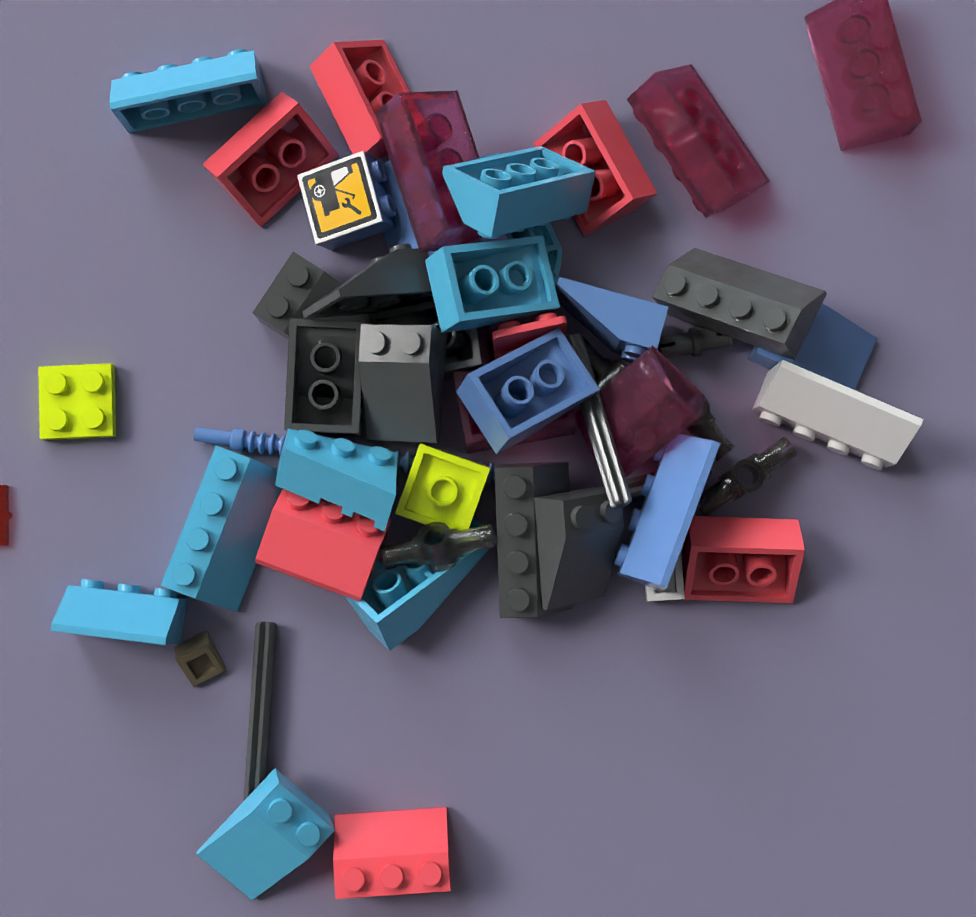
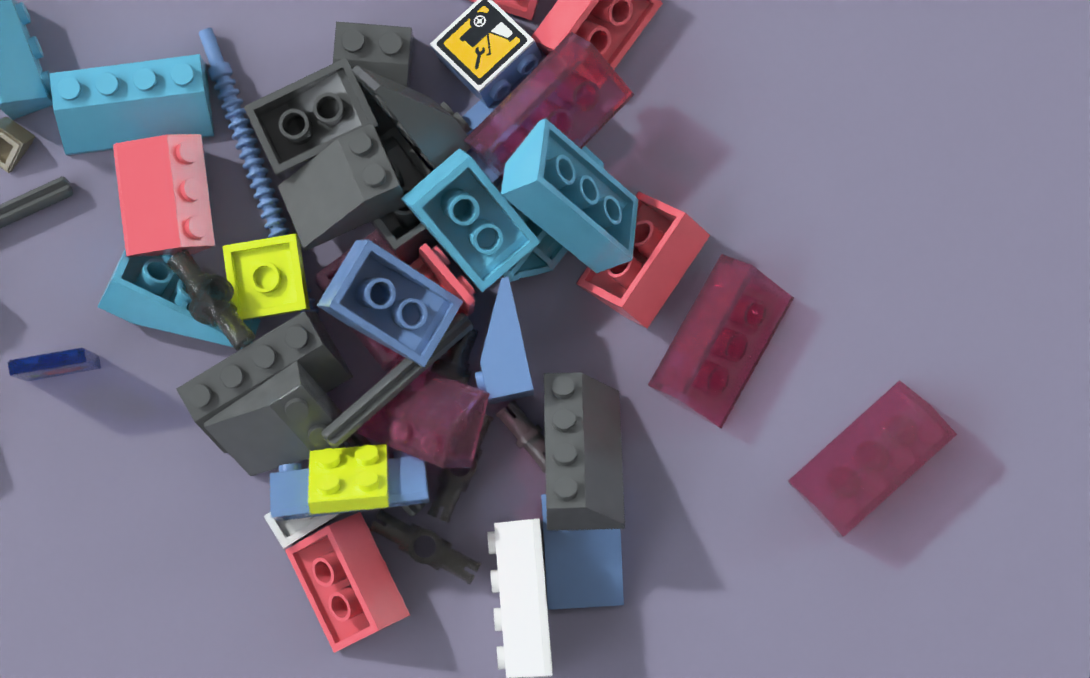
camera: 65 degrees right, 0 degrees up
(341, 472) = (230, 177): medium azure wedge -> none
(420, 715) = (54, 364): none -> clear blue tile
(665, 504) = (348, 479): none -> neon yellow plate

